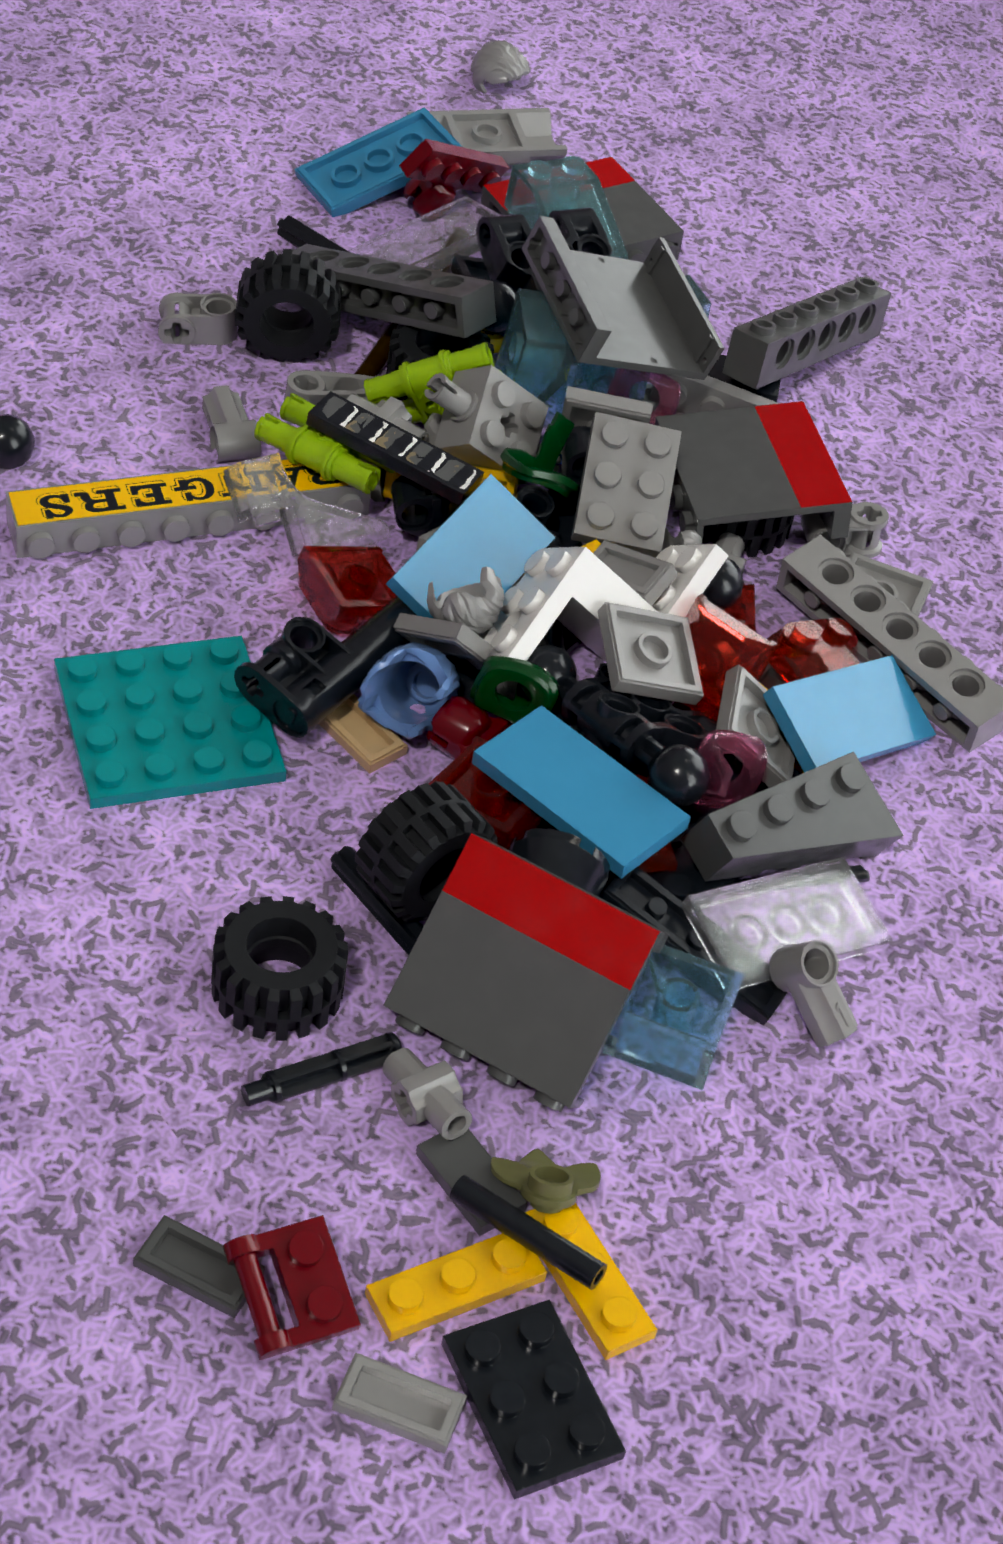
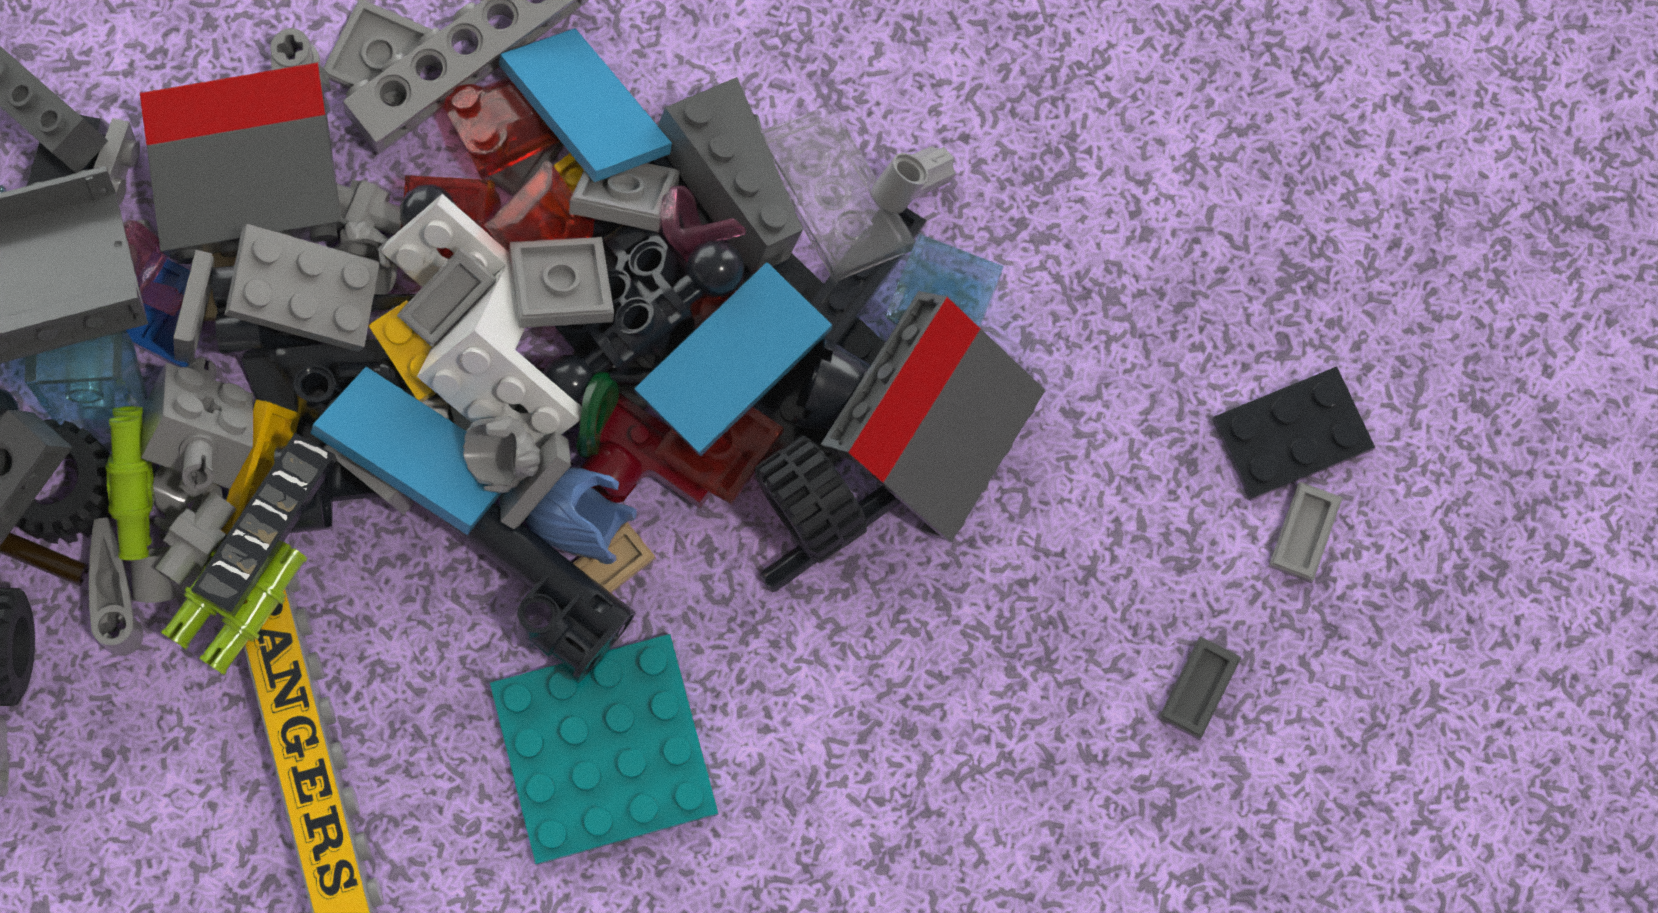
camera: 85 degrees left, 30 degrees up
(229, 426) = (174, 706): light grey piece -> none
(266, 495) = (342, 610): clear arch -> none
(279, 999) = (915, 591): black tyre -> none
(309, 1281) = (1217, 599): dark red plate -> none
(321, 1070) = (1005, 592): black piece -> none
(344, 584) = (419, 573): clear red slope -> none
(427, 1093) = (1031, 507): light grey axle -> none
(453, 1285) = (1200, 488): yellow plate -> none
(465, 1156) = (1102, 474): dark grey tile -> none
(528, 1232) = (1167, 429): black piece -> none
(540, 468) = (261, 375): dark green piece -> none
(544, 1183) = (1105, 414): olive plate -> none
(611, 1309) = (1185, 386): yellow plate -> none

